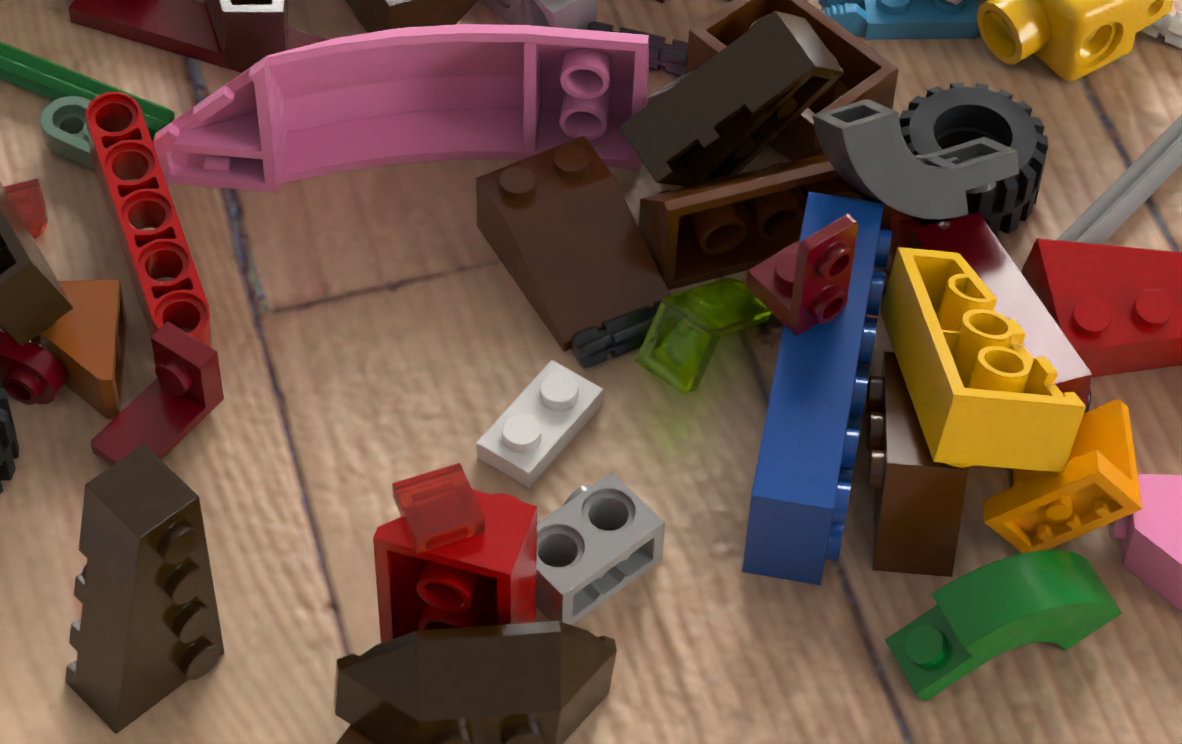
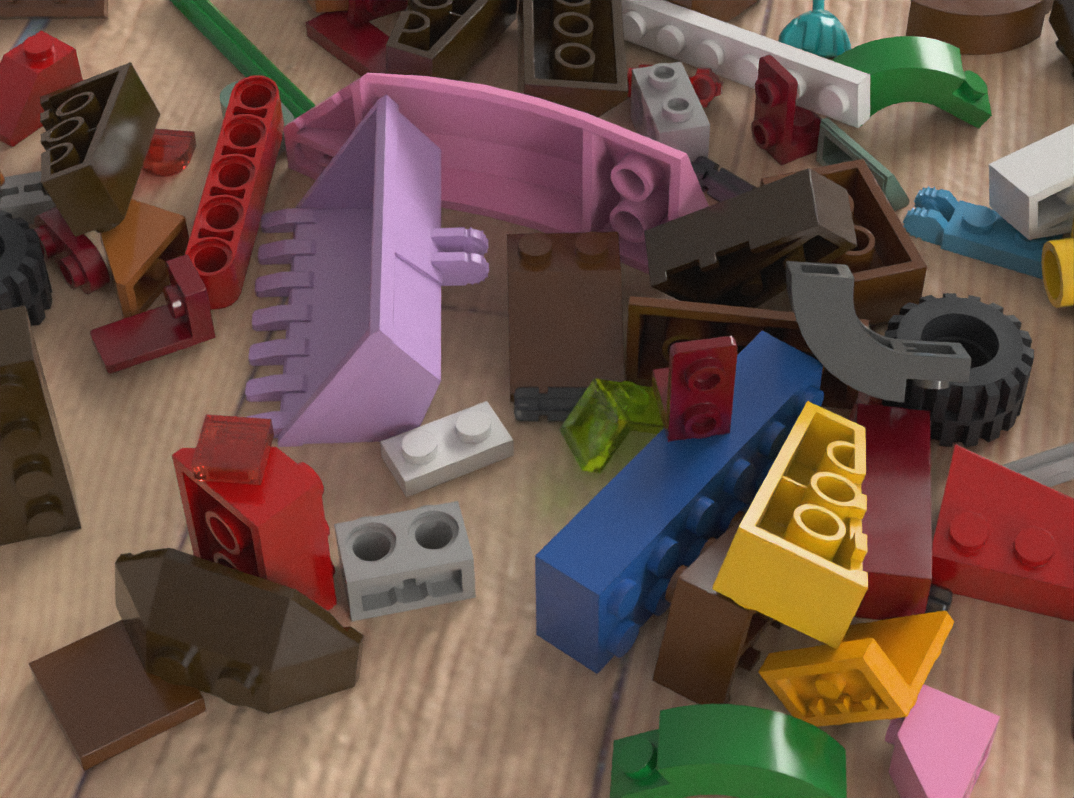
camera: 30 degrees right, 5 degrees down
(356, 292) = (361, 290): none -> lavender piece

